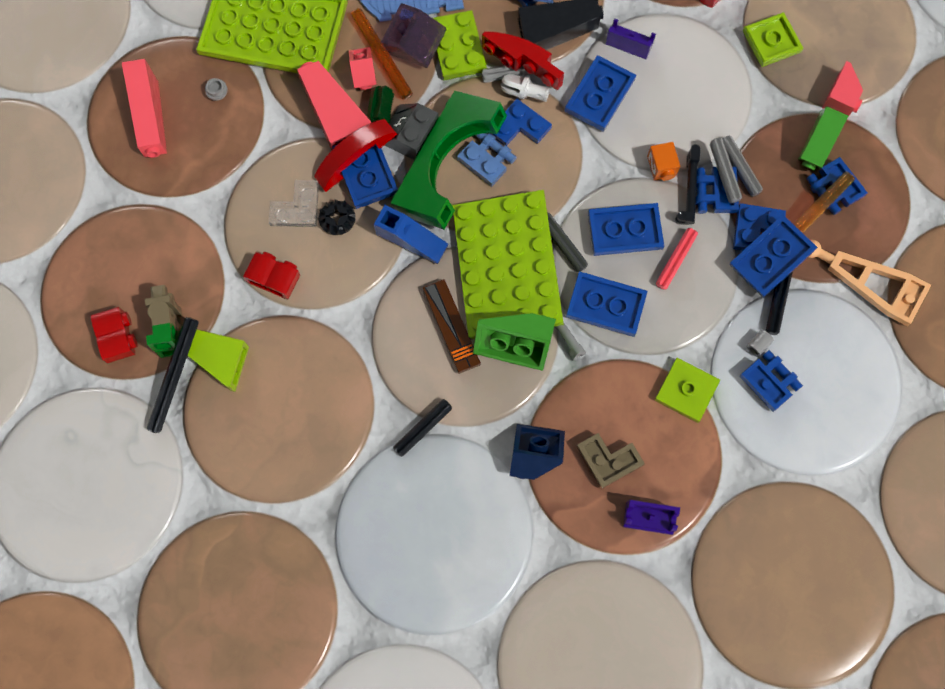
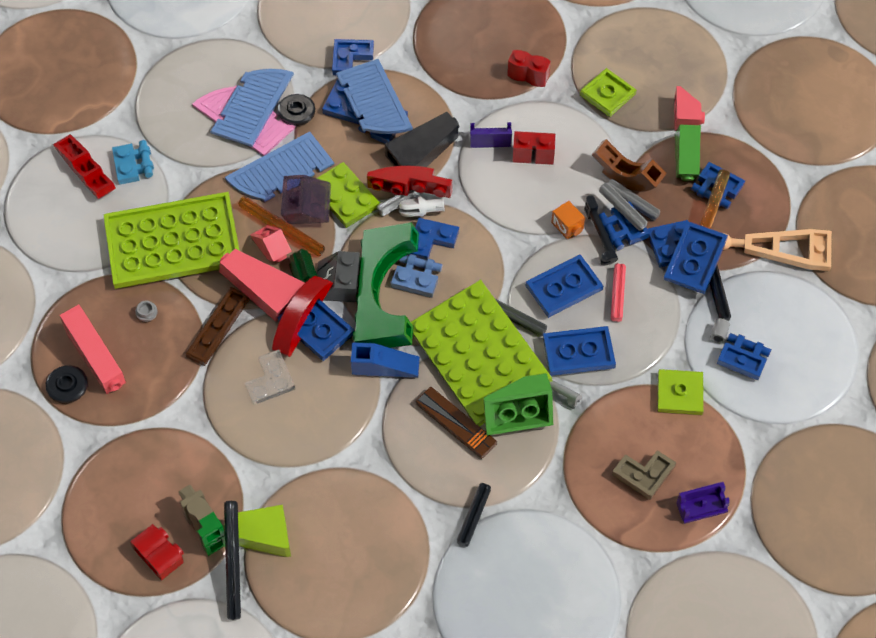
camera: 25 degrees left, 15 degrees down
(111, 132) = (66, 384): none -> black wheel
(272, 275) = (277, 443): red brick -> none
(274, 132) = (217, 326): none -> reddish brown tile
(344, 224) = (306, 382): black gear -> none
(536, 451) = (580, 492): dark blue slope -> none
(600, 93) = (487, 187): blue plate -> none
(677, 69) = (541, 142): none -> red piece
(746, 132) = (630, 174): none -> dark orange arch

